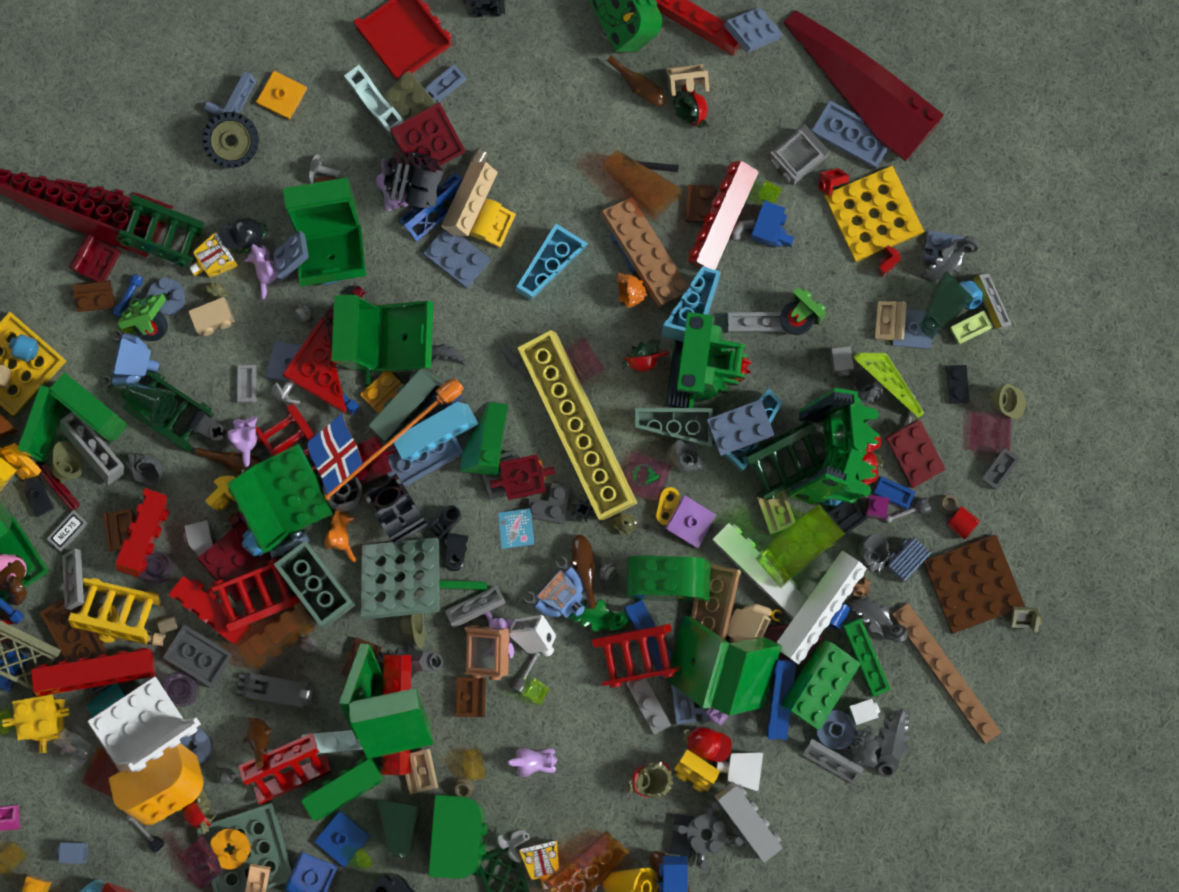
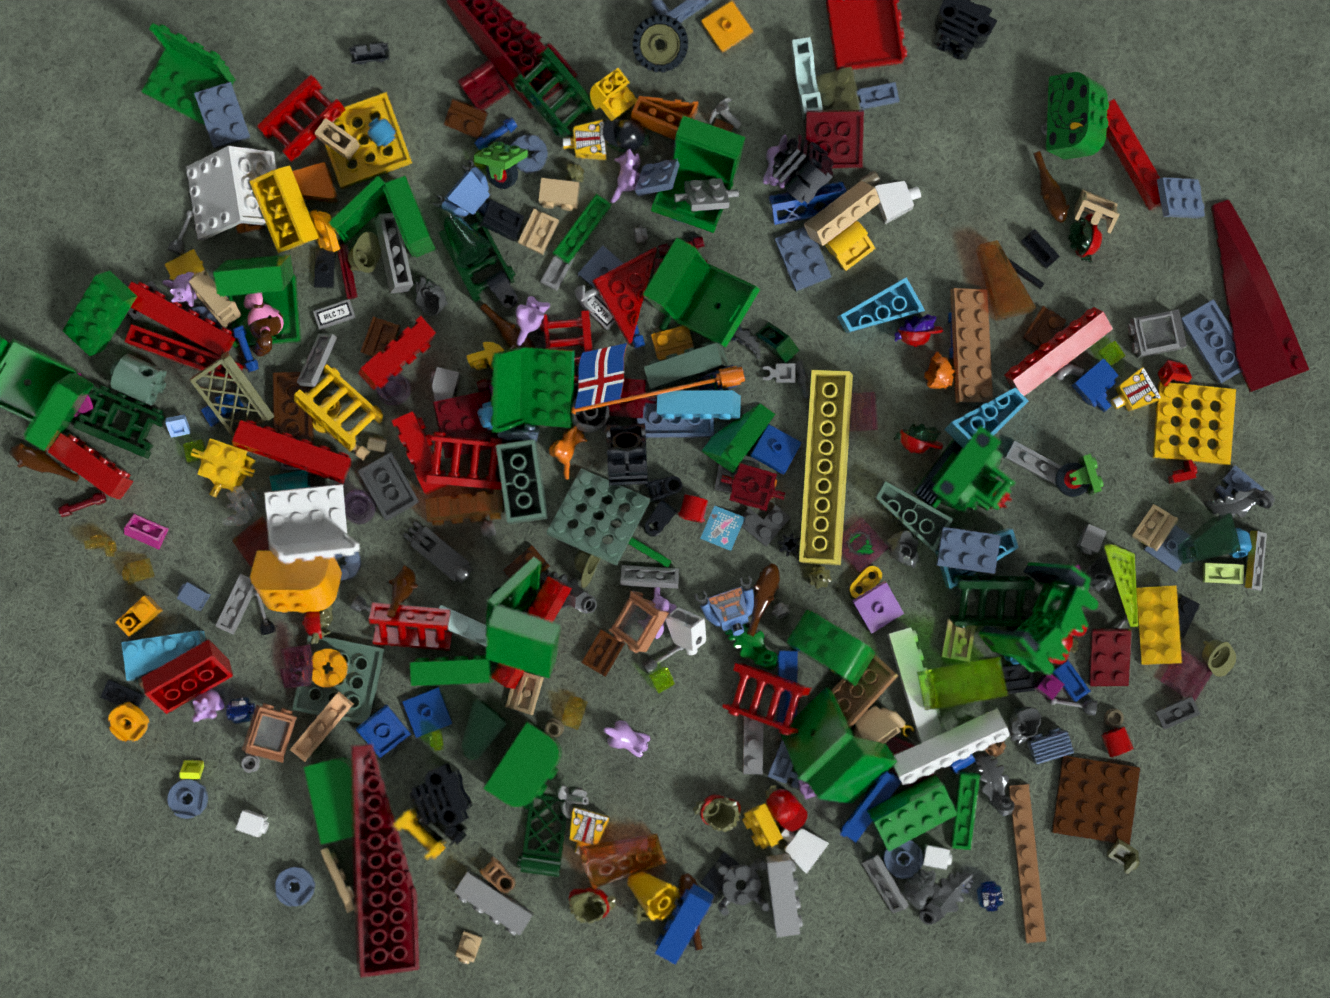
camera: 25 degrees right, 5 degrees up
(116, 838) = (236, 605): none -> light grey plate
(173, 366) = (502, 220): none -> black plate
(211, 359) = (538, 231): none -> tan plate
(212, 205) = (612, 94): none -> yellow brick
(249, 336) = (582, 229): none -> green tile
(265, 200) = (662, 115): none -> orange wedge
(306, 399) = (602, 313): none -> tile
(342, 247) = (706, 194): none -> light grey plate
(475, 340) = (777, 342): none -> dark green slope
(480, 525) = (693, 508): none -> red piece
(495, 364) = (784, 372): none -> light grey plate
(510, 163) = (896, 199): none -> white torso
(525, 433) = (776, 449): none -> blue plate
(591, 264) = (918, 330): none -> hair
(658, 137) = (1040, 248): none -> black hinge
(809, 214) = (1136, 392): none -> torso
(930, 719) = (990, 896): none -> clear blue head
(942, 402) = (1159, 625): none -> yellow plate

